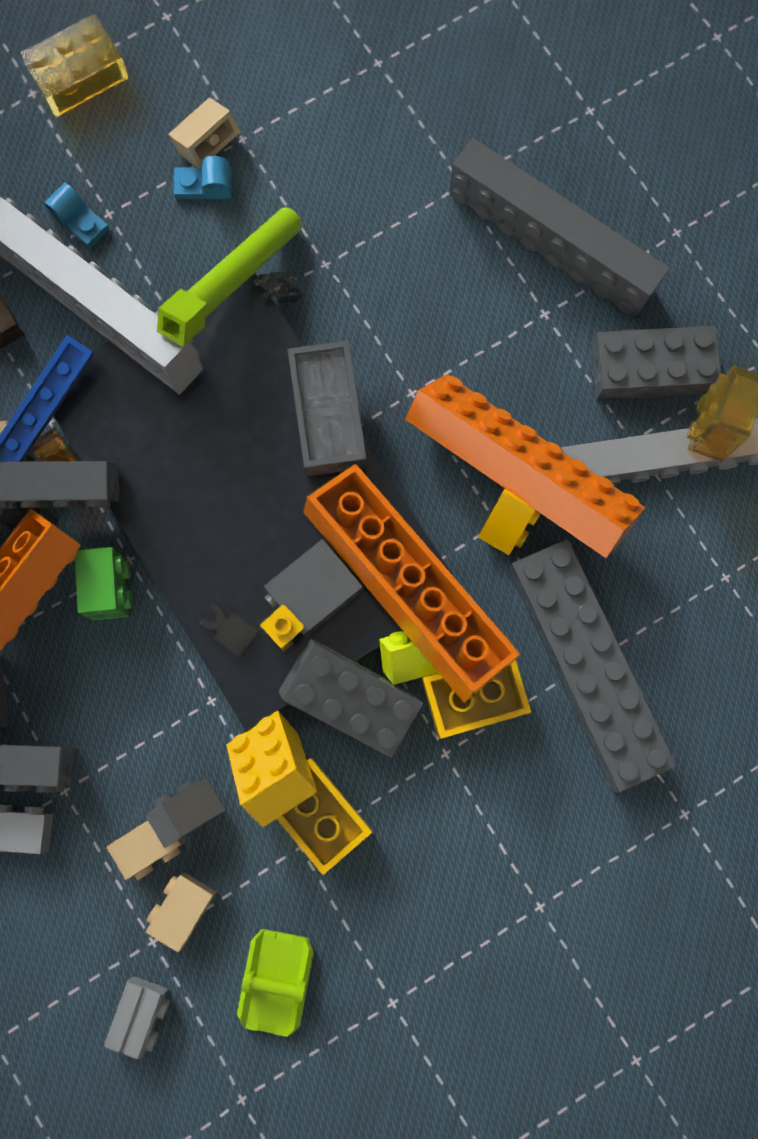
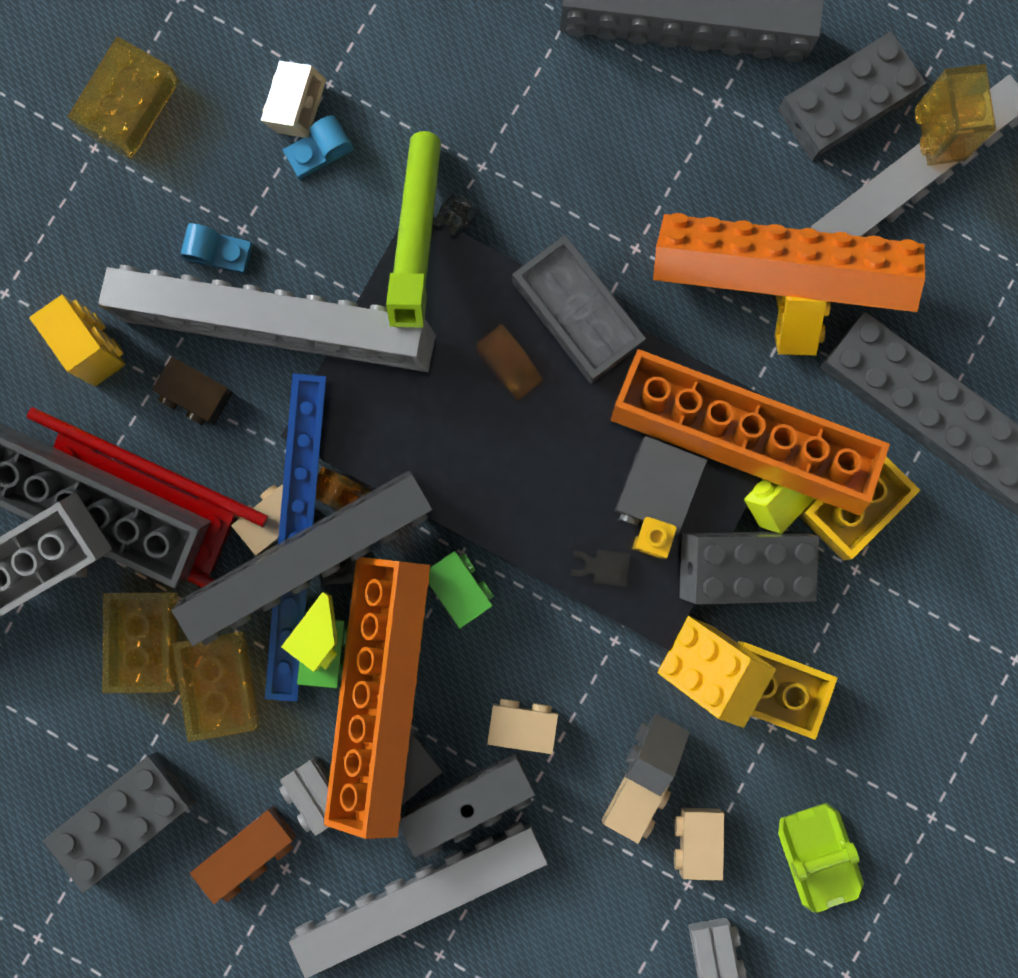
camera: 30 degrees left, 5 degrees up
(90, 728) = (523, 727): none -> tan brick
(248, 421) = (509, 362): none -> clear orange slope

